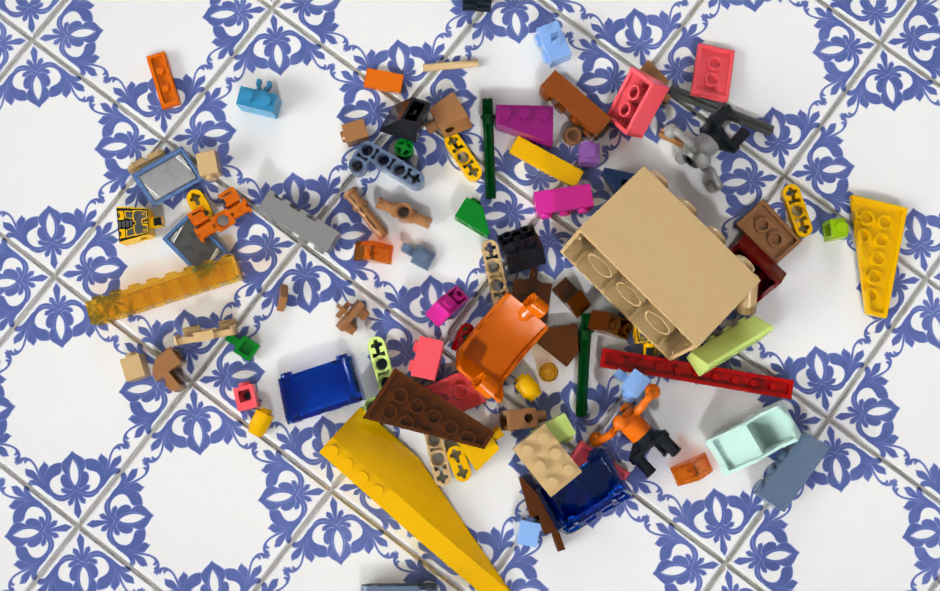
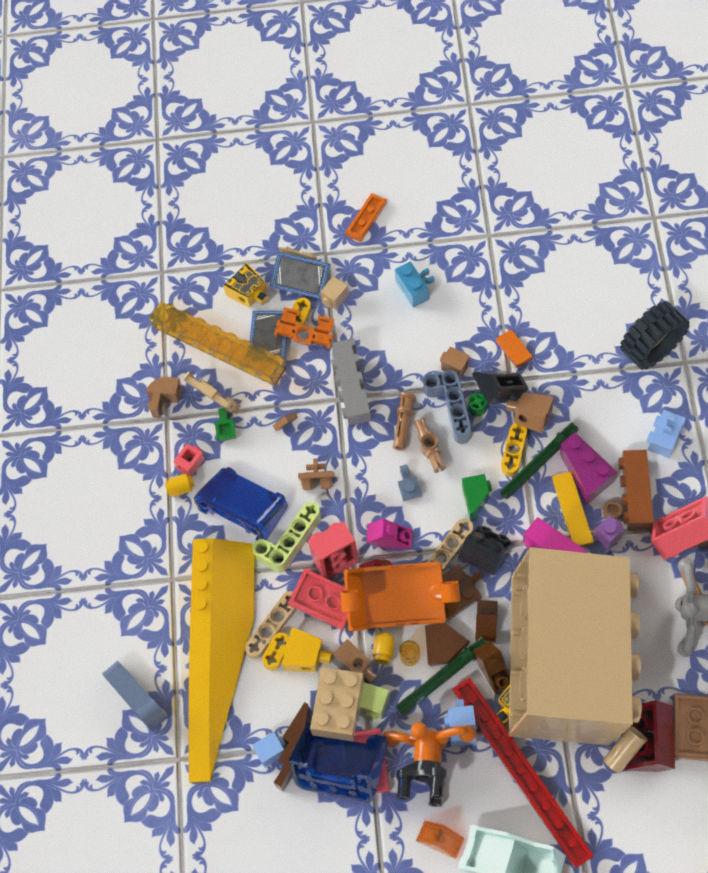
camera: 60 degrees right, 20 degrees down
(135, 367) = (143, 372): tan brick -> none
(373, 252) = (380, 452): clear orange slope -> none
(415, 408) = (289, 578): reddish brown wing -> none
(450, 65) = (575, 382): tan bar -> none
(728, 344) = (567, 771): yellowish green slope -> none

